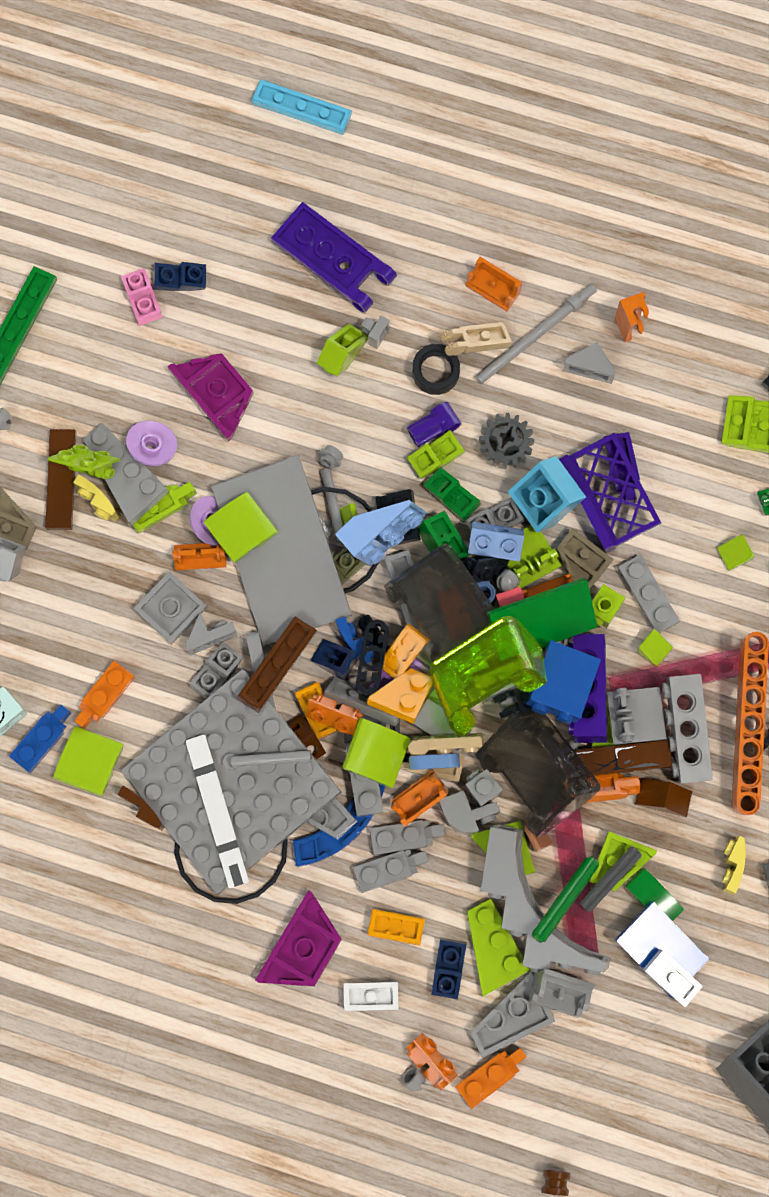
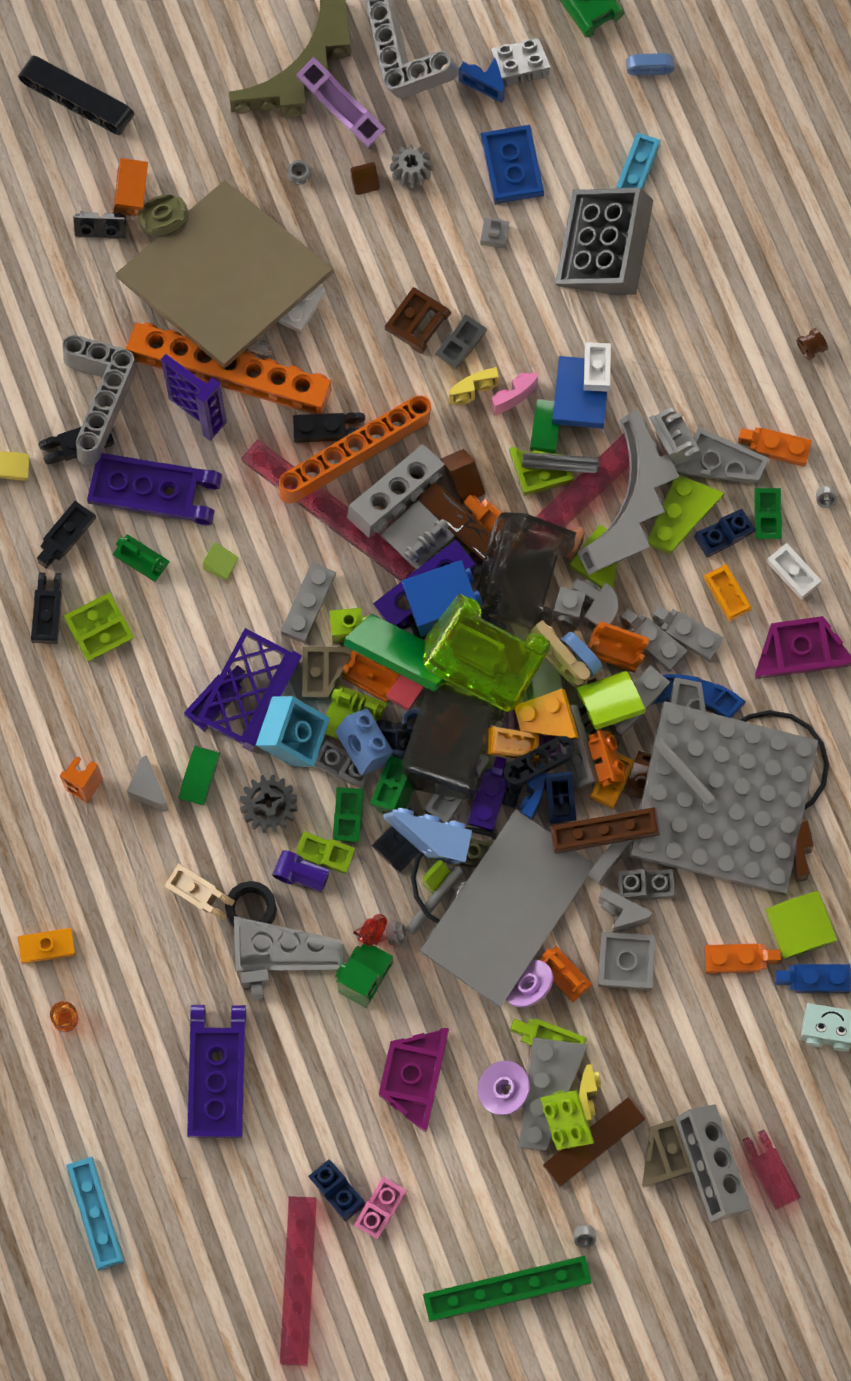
camera: 130 degrees left, 5 degrees down
(139, 205) = (298, 1281): none -> clear pink plate
(217, 811) = (756, 786): white sticker -> none
(240, 527) = (516, 950): lime slope -> none
(314, 401) = (363, 973): none -> green brick
(342, 349) = (294, 996): lime slope -> none
(343, 435) = (372, 930): none -> clear red hinge
(378, 606) = (490, 797): none -> dark purple hinge
(388, 362) = (281, 948): none -> light grey wing
(437, 1018) = (767, 513): none -> green slope
(440, 1070) = (803, 481): orange hinge -> none
(460, 189) = (67, 1020): none -> clear orange wheel
(494, 284) = (137, 918): orange hinge -> none
(507, 580) = (389, 709): light grey hinge -> none
(525, 210) = (46, 945): none -> light orange plate
(565, 899) = (605, 478): green axle -> none
(570, 408) = (199, 775): none -> green slope
(573, 304) = (102, 842): light grey bar -> none
(654, 648) = (349, 566): lime slope -> none
(703, 903) = (522, 387): none -> bright pink slope

